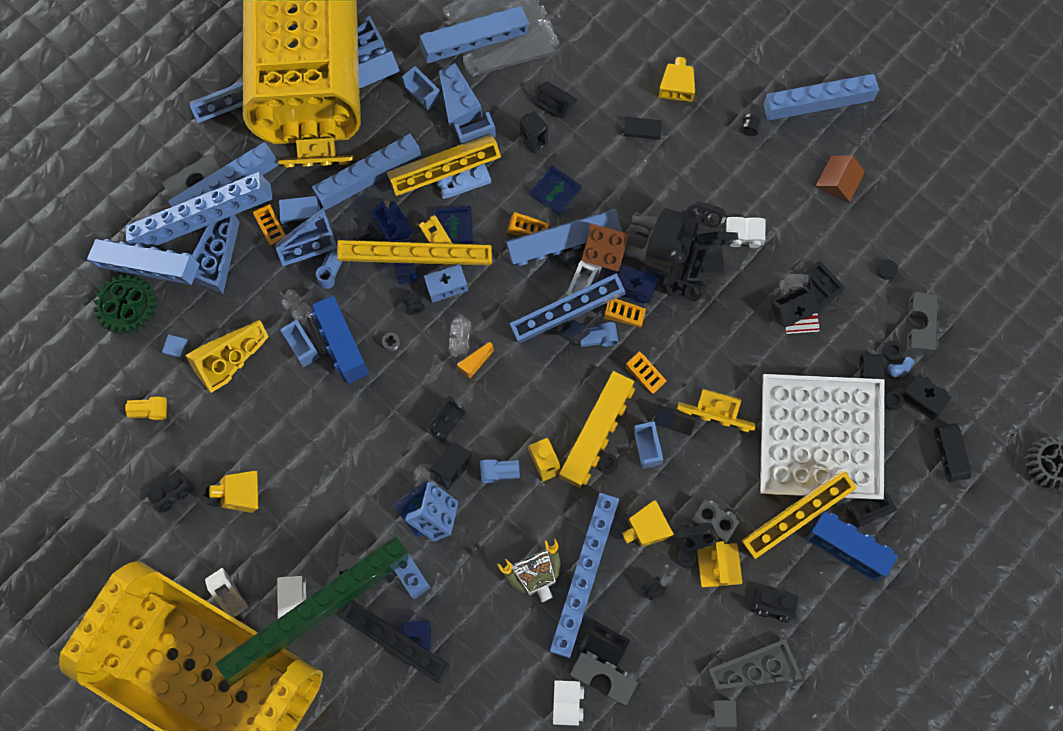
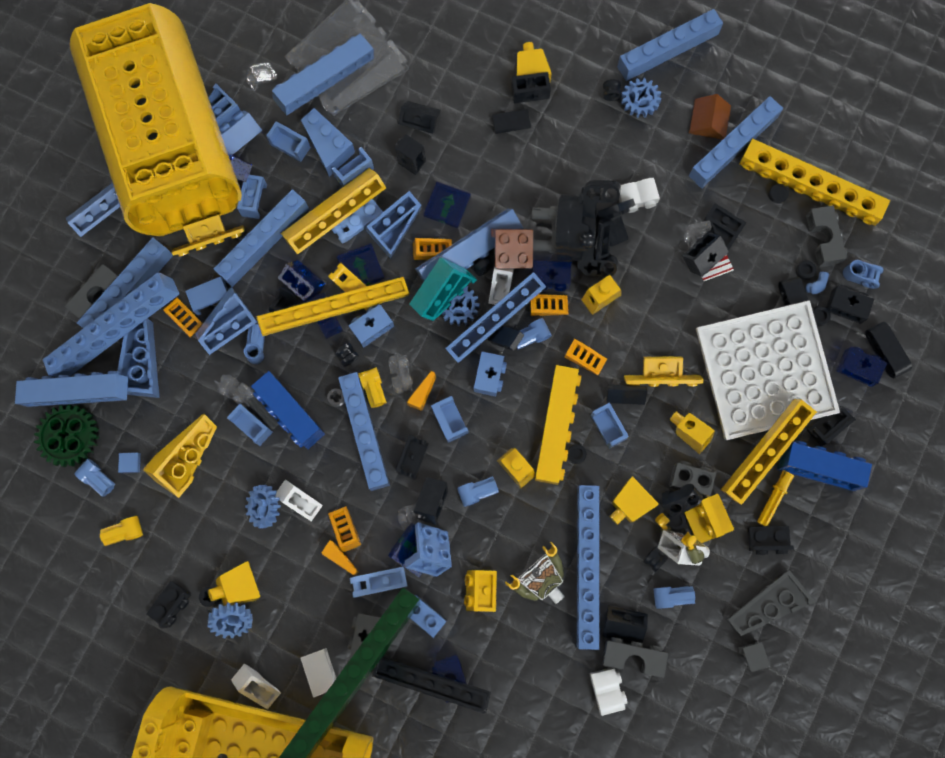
camera: 15 degrees left, 5 degrees up
(136, 347) = (91, 474): none -> medium blue piece
(223, 523) = (230, 620): none -> medium blue gear
(287, 423) = (262, 506): none -> medium blue gear
(323, 428) = (298, 500): none -> white arch
(342, 489) = (336, 555): none -> light orange slope
(359, 482) = (348, 545): none -> light orange slope
(367, 99) = (240, 167): none -> clear blue brick
(369, 129) = (251, 195): none -> medium blue panel
(376, 529) = (379, 581): none -> light blue plate
(407, 381) = (364, 431): none -> medium blue brick
(414, 19) = (260, 74): none -> clear bracket
(429, 342) = (372, 384): none -> yellow piece
(472, 567) = (480, 590): none -> yellow bracket
(493, 394) = (449, 419): none -> medium blue panel
(498, 192) = (394, 223): none -> medium blue wedge
(523, 264) = (439, 288): none -> teal wedge
(534, 279) = (464, 311): none -> medium blue gear
(546, 351) = (487, 363): none -> medium blue brick
(656, 630) = (669, 597): none -> medium blue piece
(670, 100) = (531, 87): none -> black brick
(680, 315) = (602, 293): none -> yellow torso
(683, 582) = (680, 547): none -> torso
(729, 474) = (698, 436): none -> yellow torso
(777, 147) = (636, 91): none -> medium blue gear
(799, 558) = (775, 498): none -> yellow axle
(858, 207) = (735, 142): none -> medium blue brick
(910, 456) = (872, 366): none -> clear blue brick
(936, 268) = (824, 180): none -> yellow brick
(953, 371) = (867, 274): none -> medium blue piece

